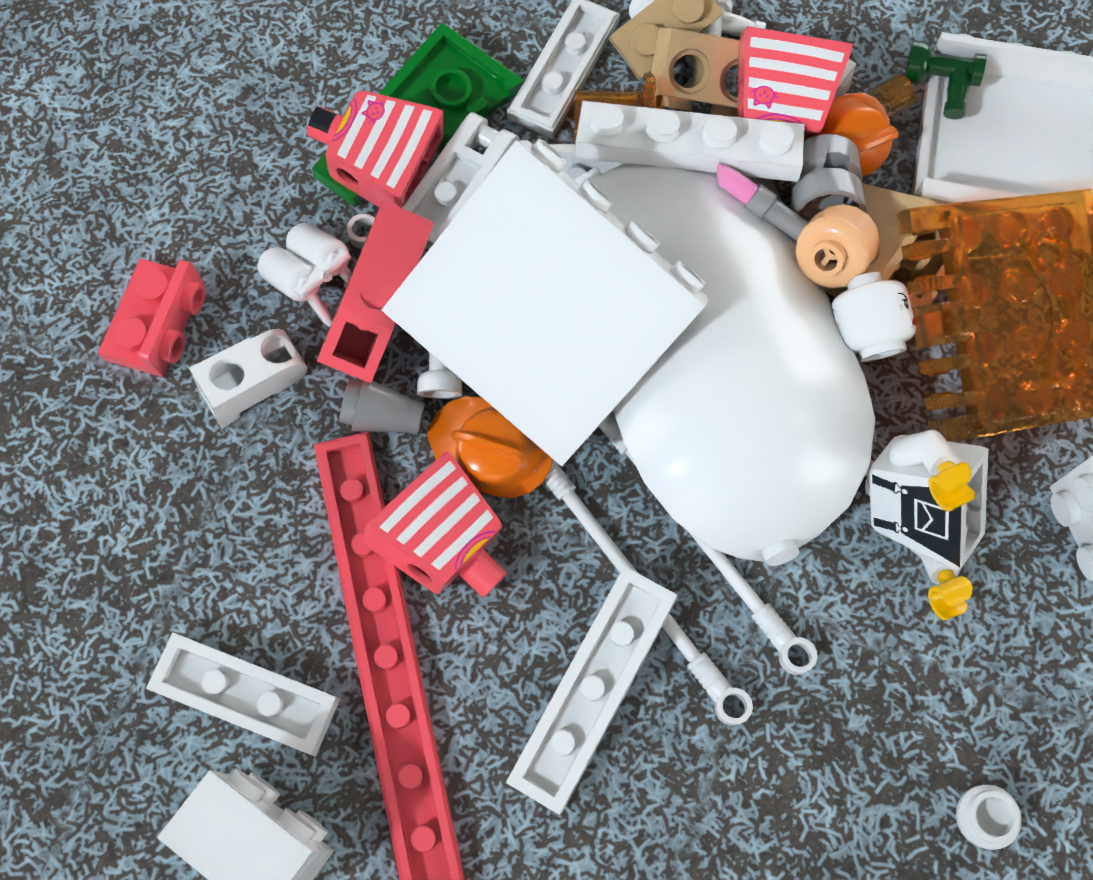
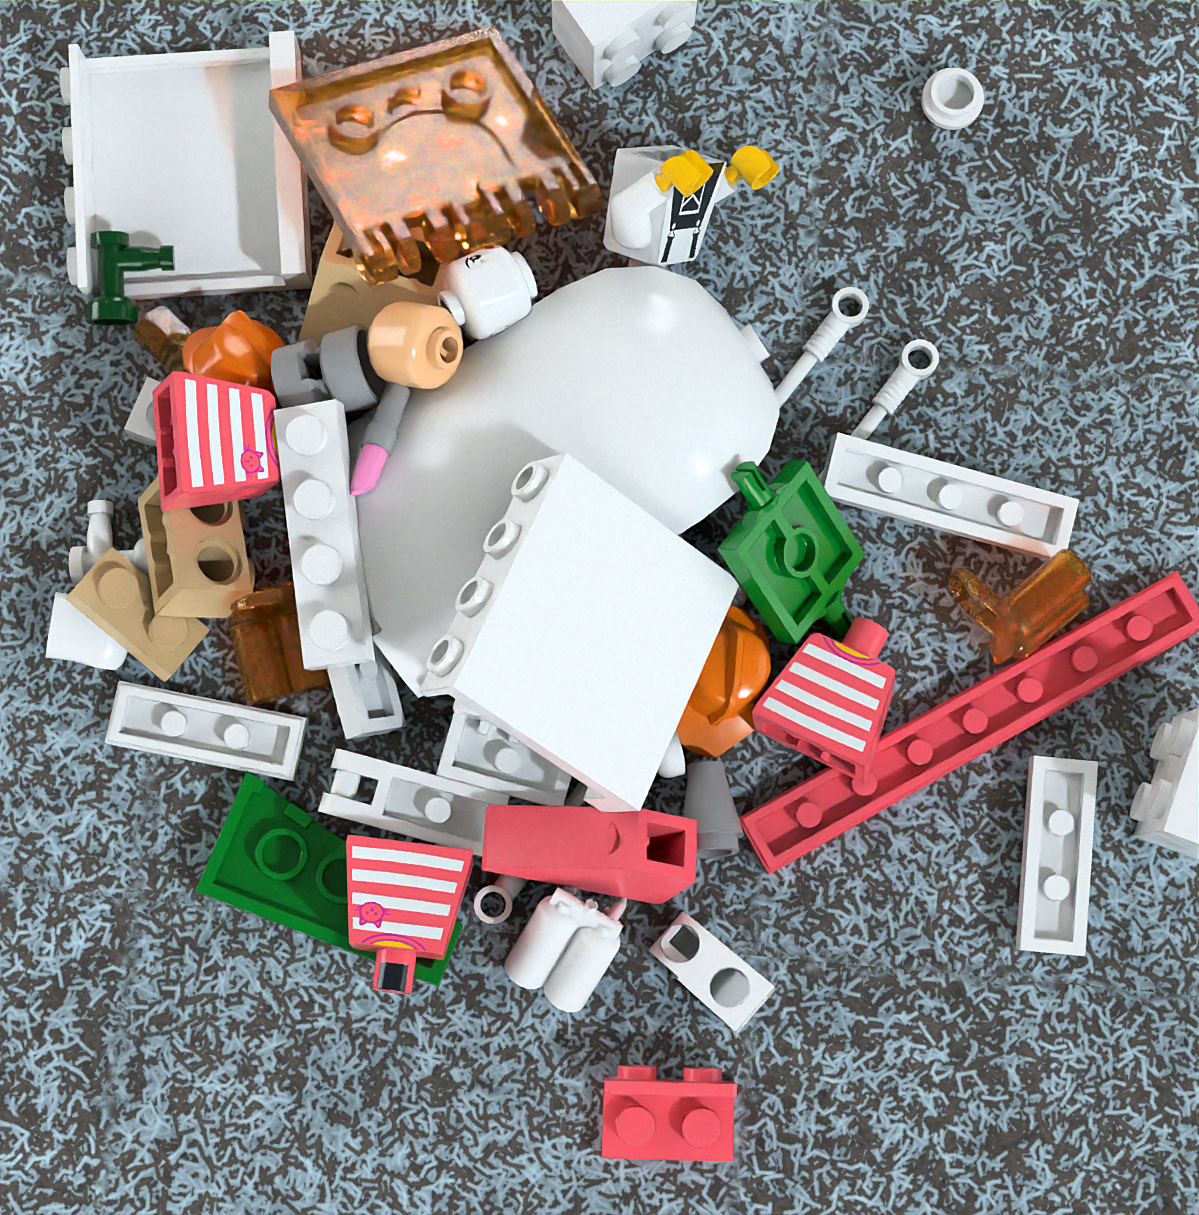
camera: 110 degrees left, 10 degrees up
(467, 733) = (1031, 609): none -> clear orange piece
(579, 522) = (792, 551): none -> green plate

